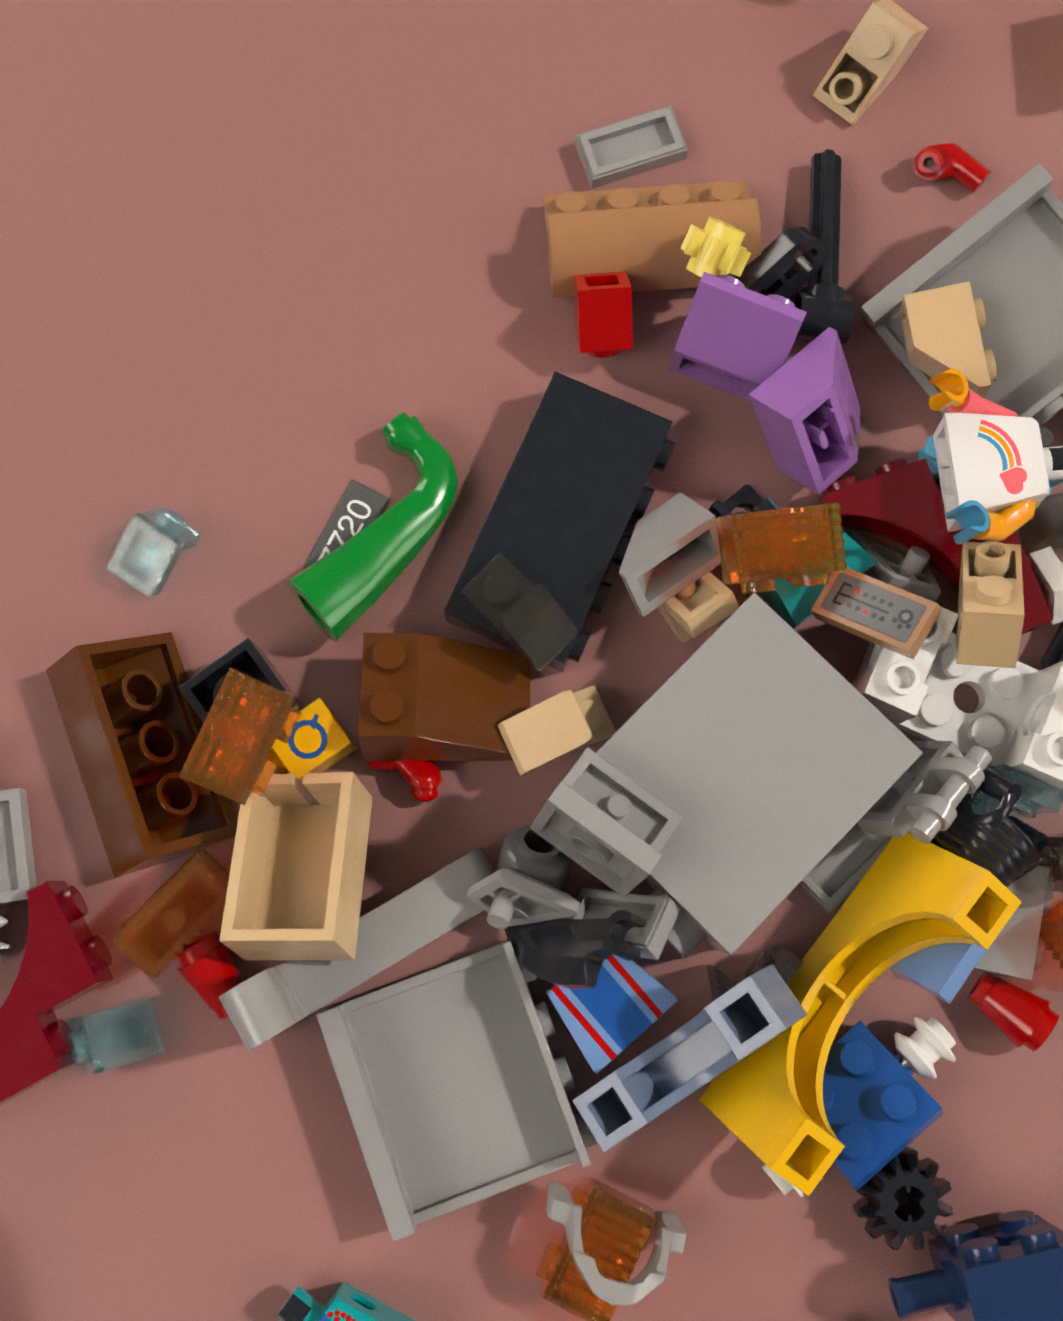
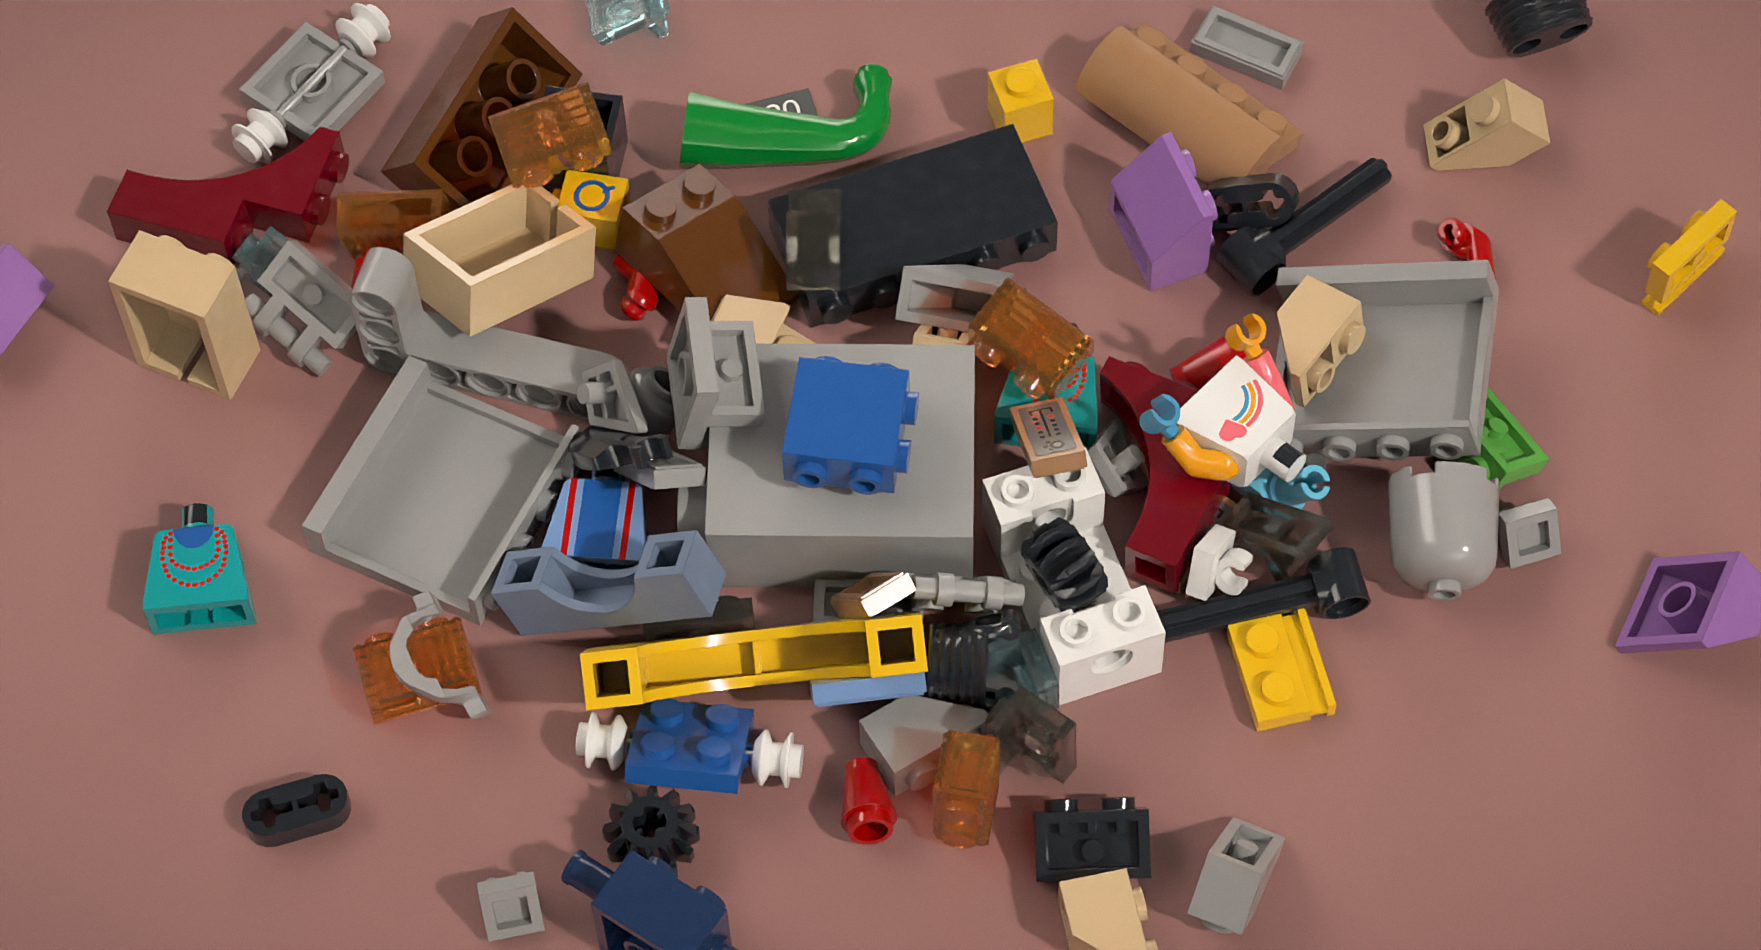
camera: 50 degrees right, 20 degrees down
(104, 1178) = (177, 301): none -> tan piece
(183, 1042) = (314, 295): none -> light grey plate
(531, 346) = (1021, 98): none -> yellow brick
(603, 313) = (1092, 122): red brick -> none
(715, 249) = (1205, 134): light yellow gear -> none
(762, 765) = (848, 425): none -> blue brick
(811, 414) = (1166, 299): medium lavender slope -> none
(882, 863) = (872, 594): none -> medium nougat tile
(884, 426) = (1205, 363): none -> red cone
(986, 699) = (1064, 565): none -> black gear
(990, 604) = (1130, 502): tan slope -> none

